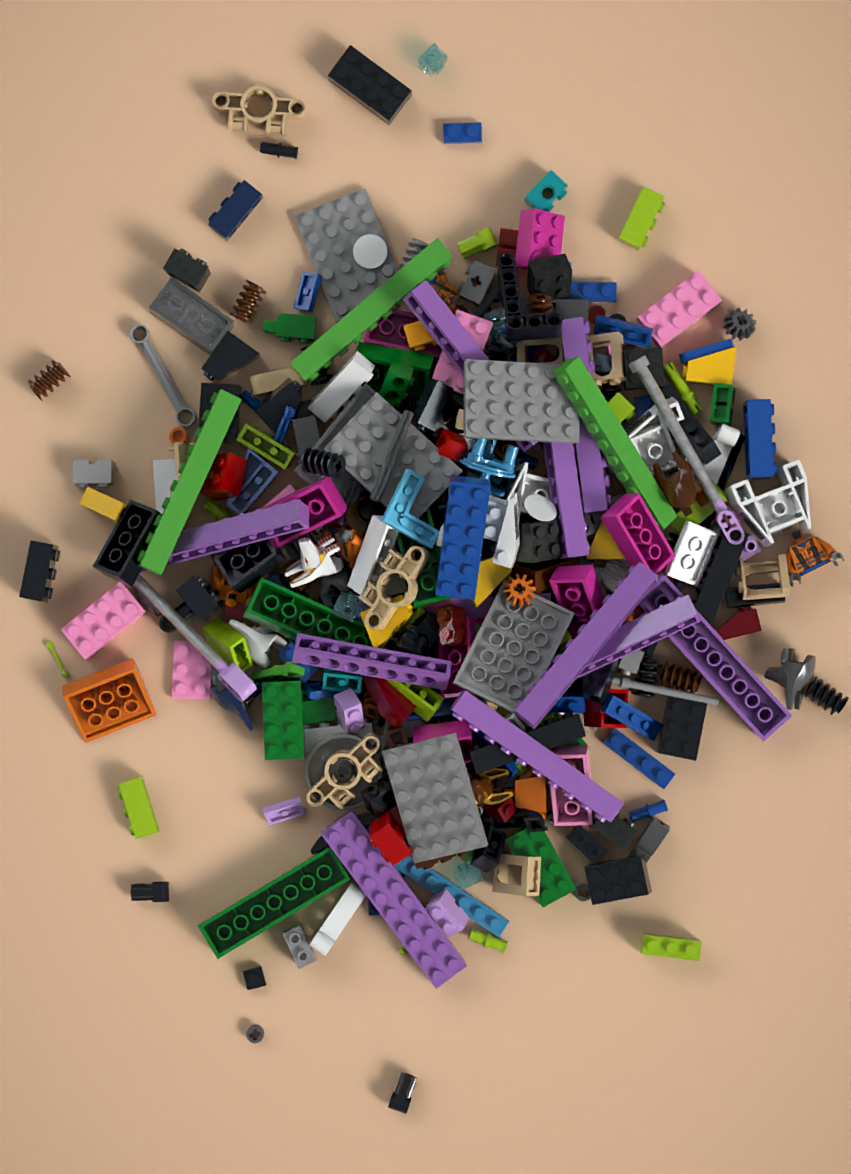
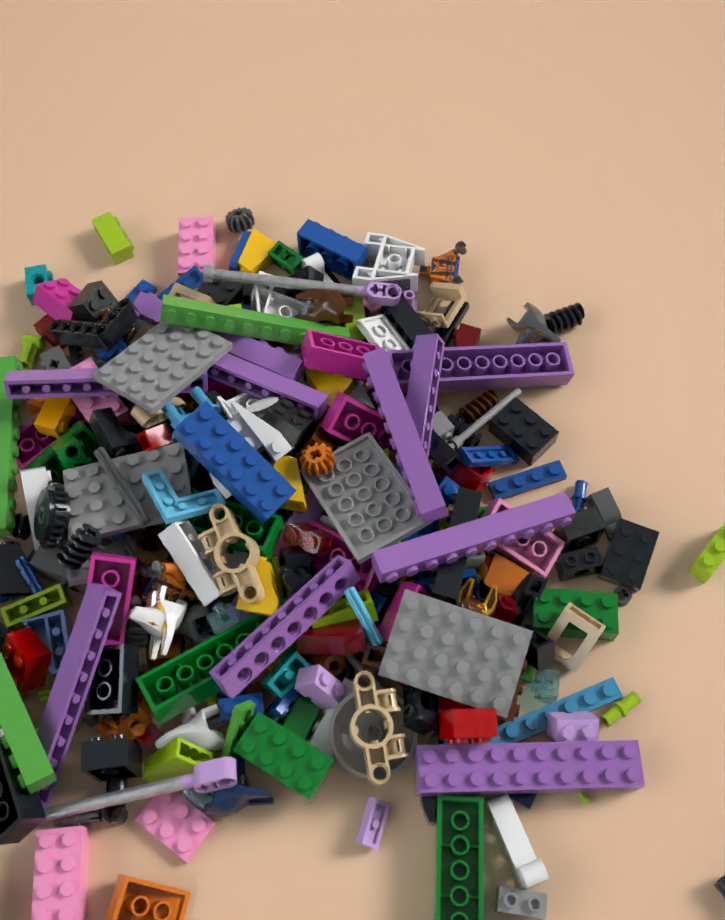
camera: 60 degrees left, 25 degrees down
(336, 413) = (52, 515): none -> black gear
(418, 712) = (363, 616): none -> medium azure axle

